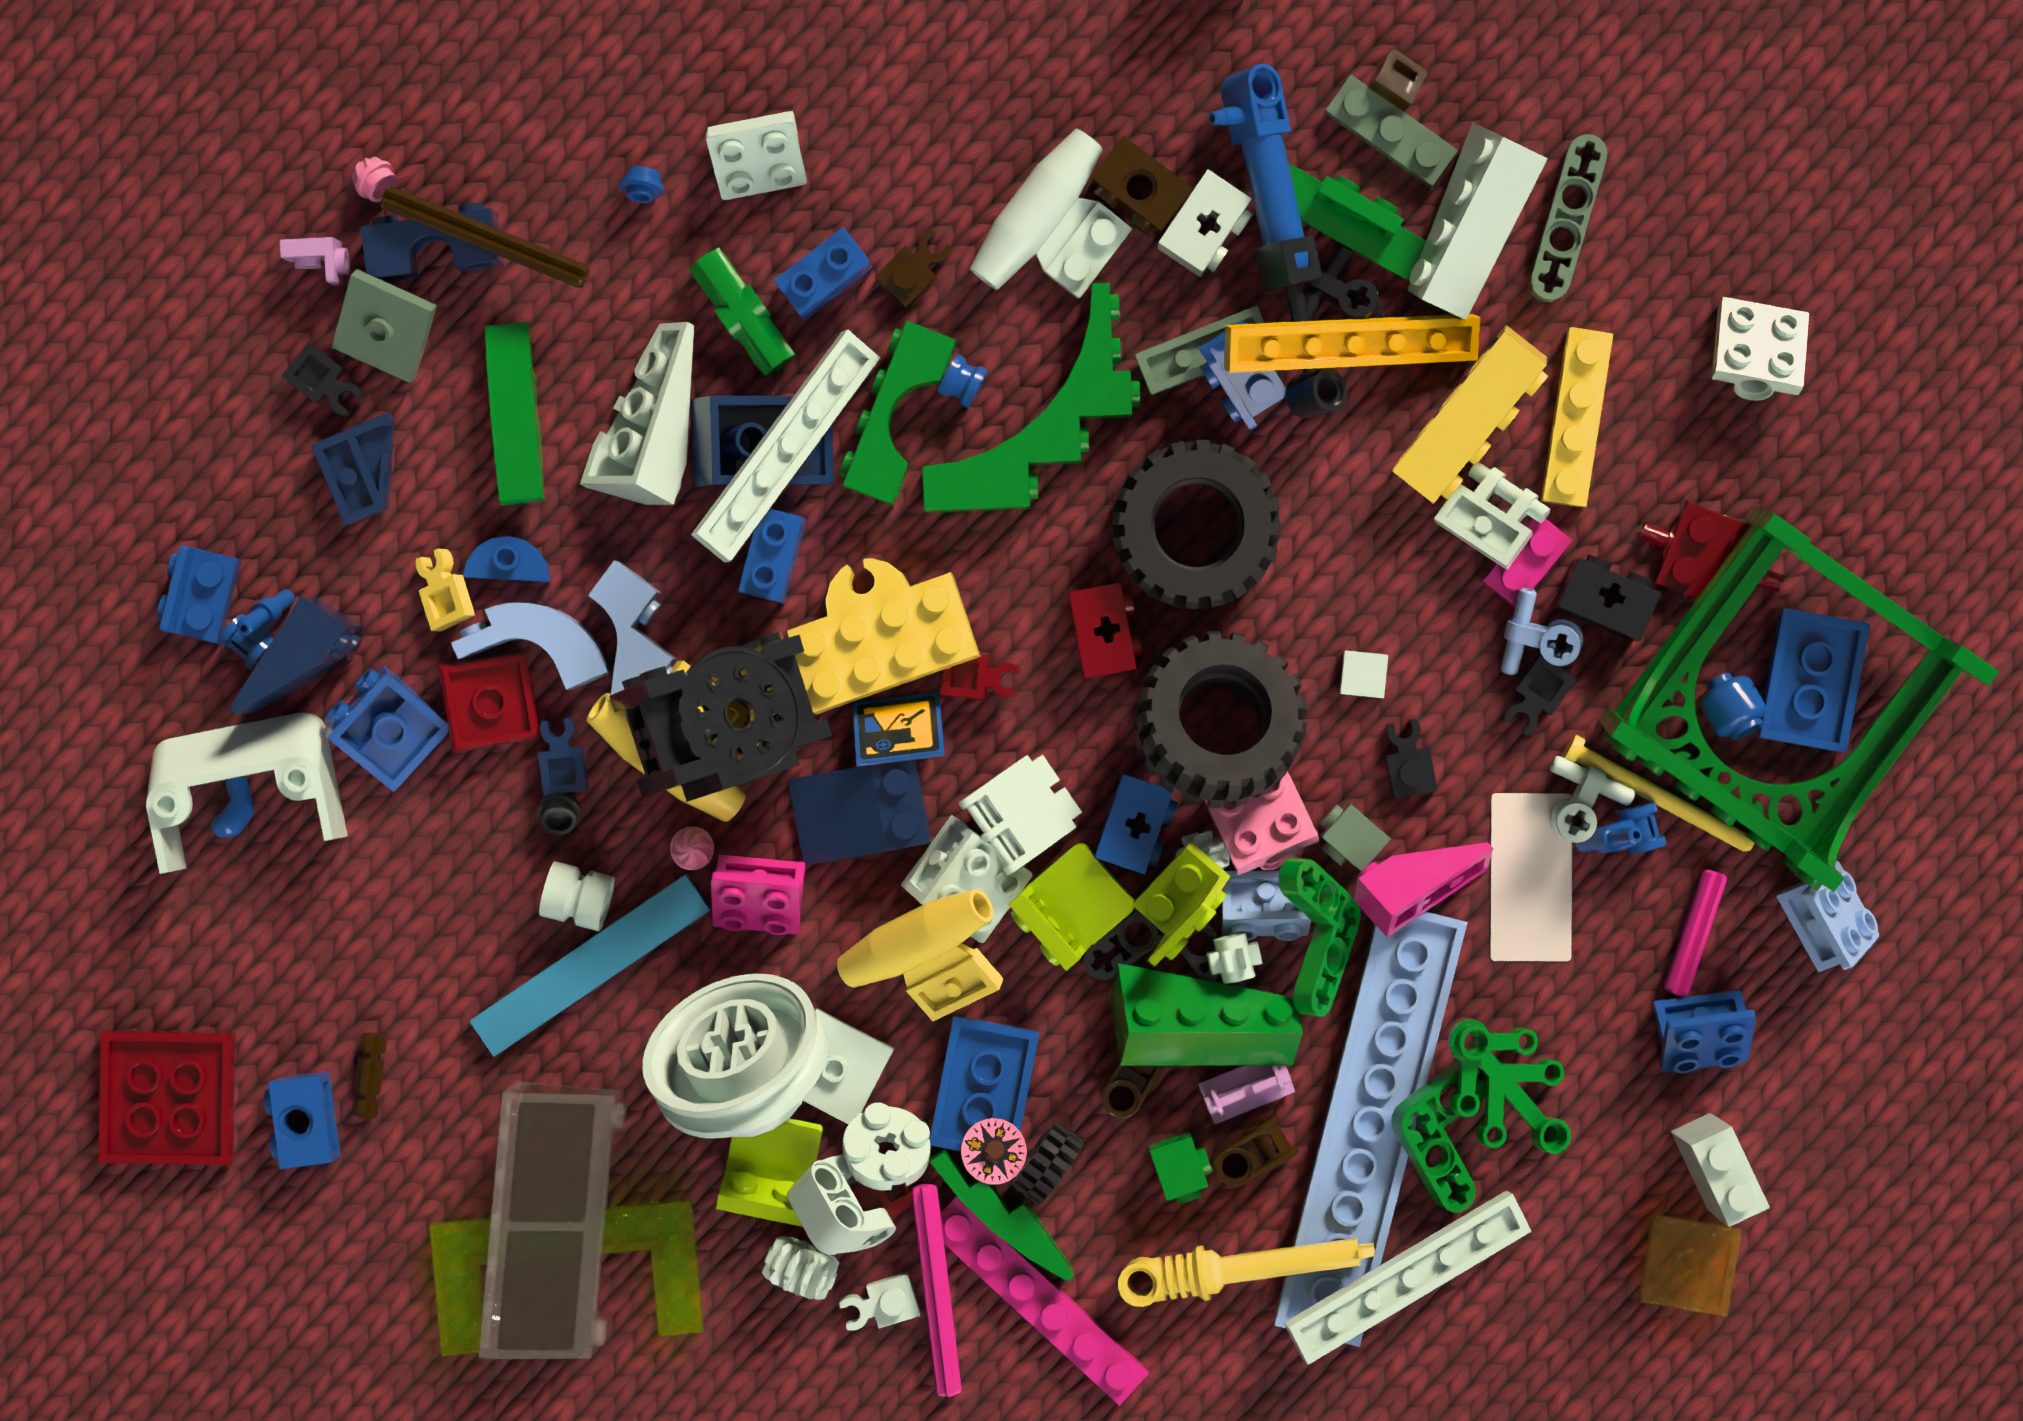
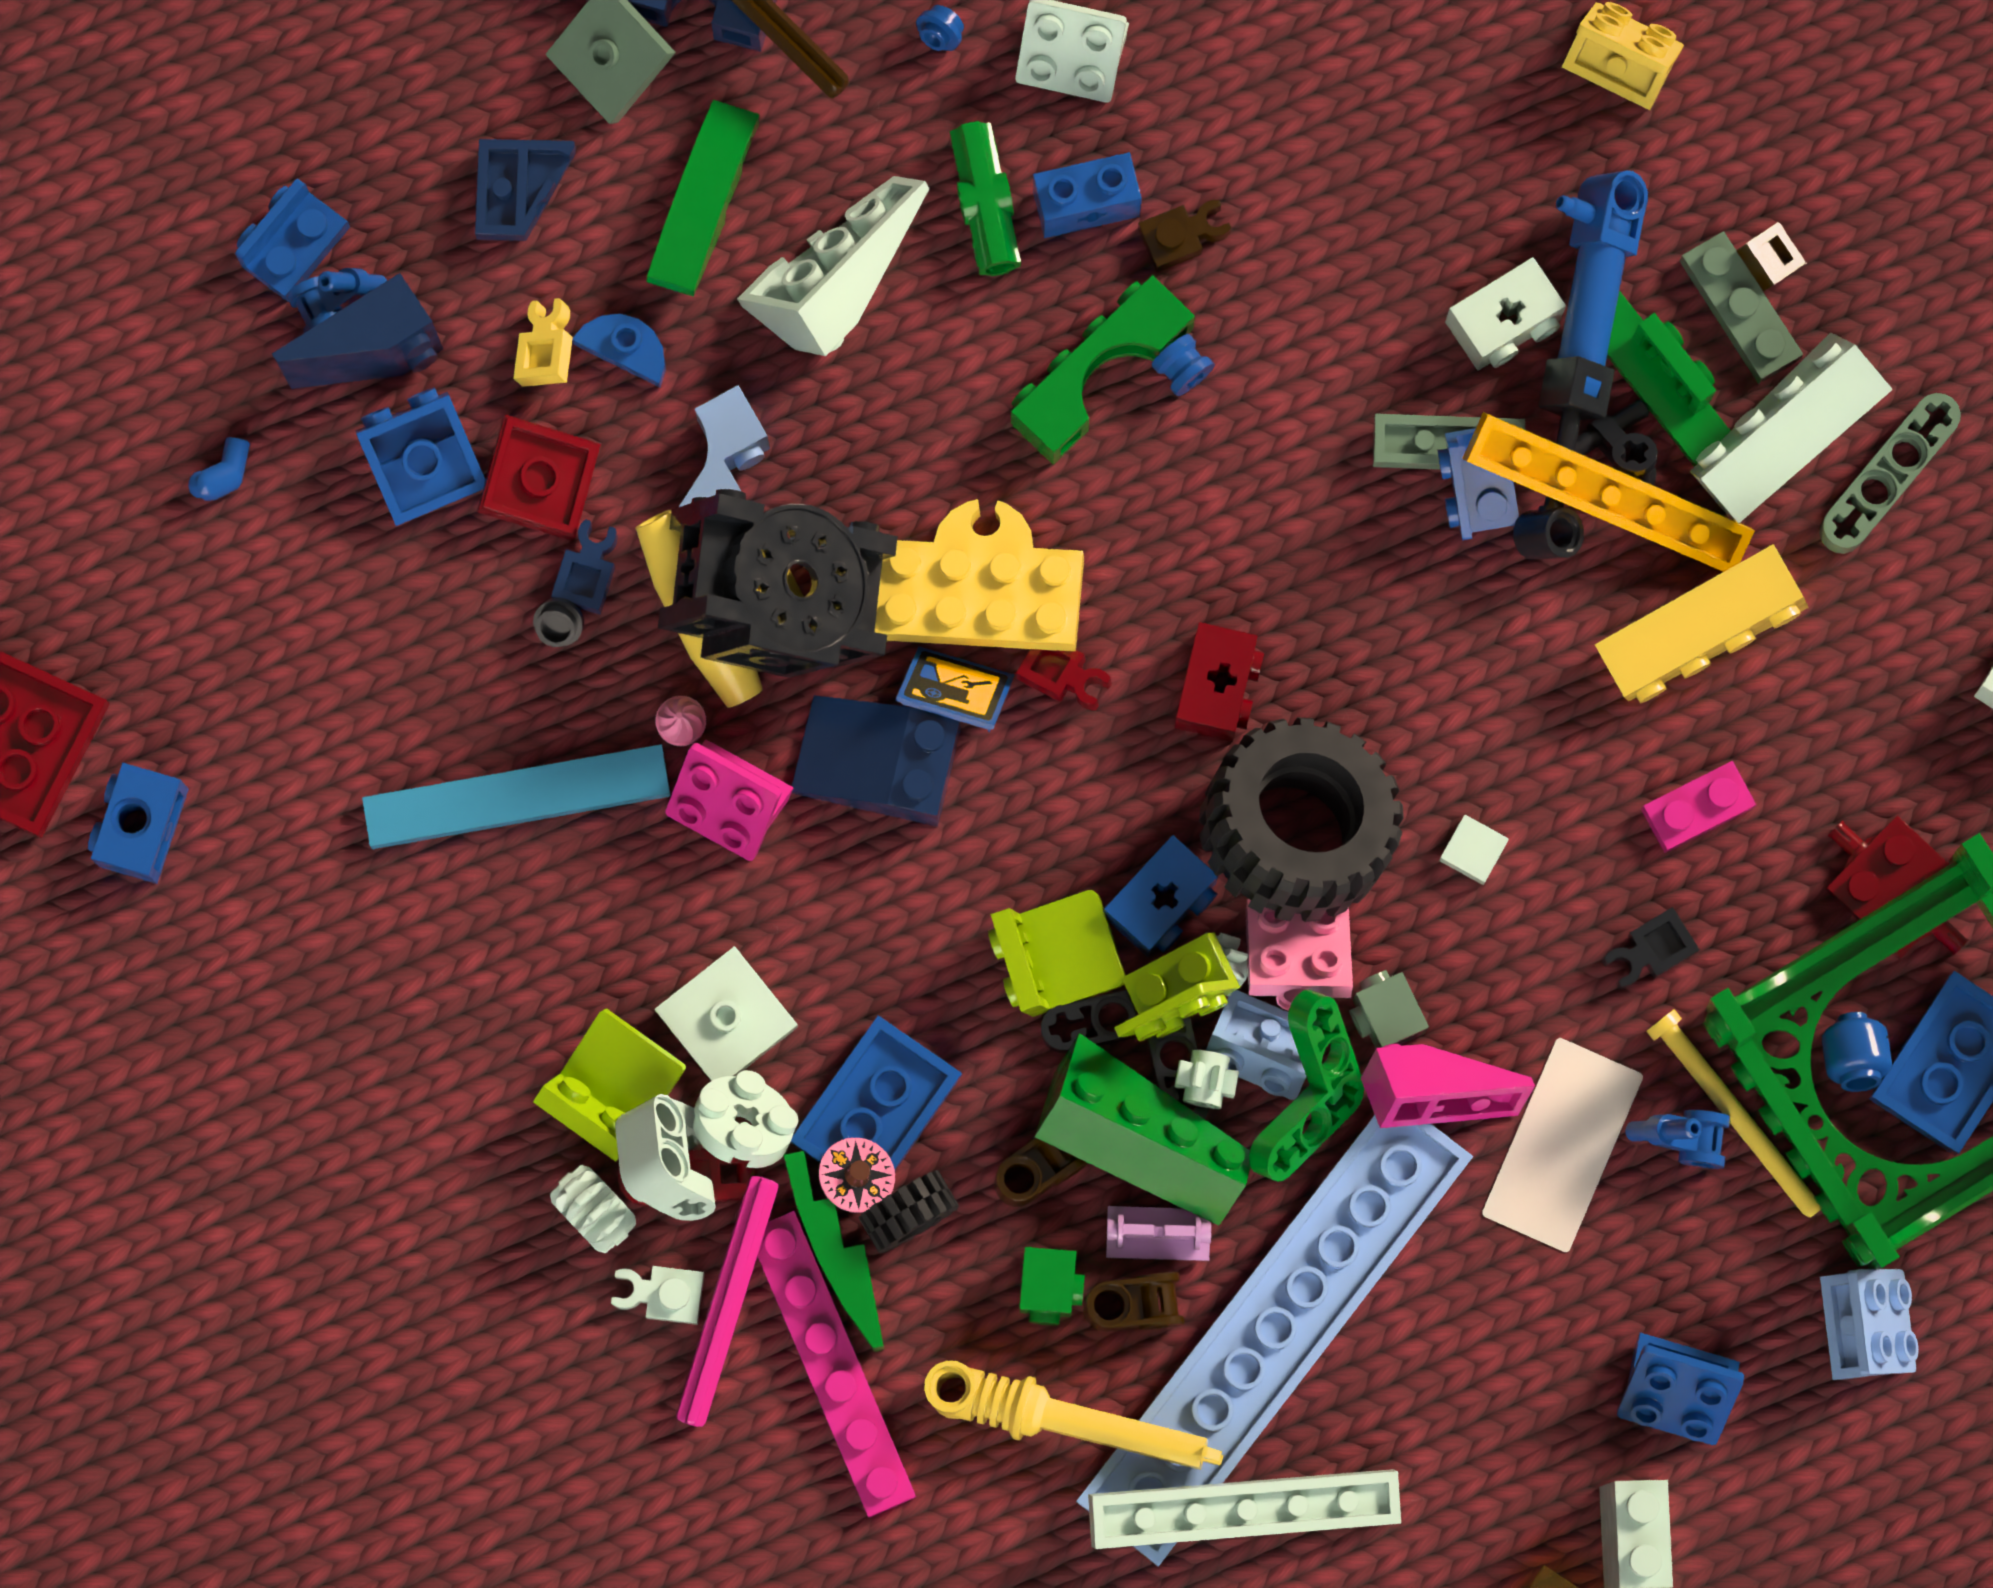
camera: 20 degrees right, 10 degrees down
(287, 744) = (314, 434): light aqua windscreen -> none
(319, 377) = (519, 77): black plate -> none
(369, 1075) = (229, 809): dark brown axle -> none
(549, 1222) = (347, 1040): windscreen -> none
(563, 637) = (631, 422): light blue arch -> none
(576, 896) = (530, 709): light aqua wheel -> none
(658, 1226) = (247, 1031): clear neon green plate -> none
(730, 429) = (945, 335): dark blue slope -> none
(736, 1057) = (630, 947): light aqua wheel -> none
(772, 556) = (904, 454): blue brick -> none
(785, 446) = (969, 345): light aqua plate -> none
(929, 953) = (881, 923): light yellow plate -> none
(963, 862) = (956, 880): light aqua bracket -> none
(1022, 811) = (1047, 830): light aqua plate -> none
(1050, 221) = (1347, 243): light aqua plate -> none
(1093, 391) = (1179, 476): green arch -> none
(1129, 163) = (1453, 221): dark brown brick -> none
(1256, 525) = (1374, 548): black tyre -> none
(1410, 768) = (1480, 969): black plate -> none
(1432, 1122) = (1344, 1351): green beam -> none
(1484, 525) = (1670, 748): light aqua plate -> none
(1502, 1082) = (1438, 1344): green plant -> none
(1522, 632) = (1660, 875): light blue piece -> none
(1576, 417) = (1814, 681): light yellow plate -> none
(1590, 784) = (1670, 1065): light aqua piece -> none
(1625, 617) = (1779, 904): black brick -> none
(1695, 933) = (1715, 1279): dark pink axle -> none

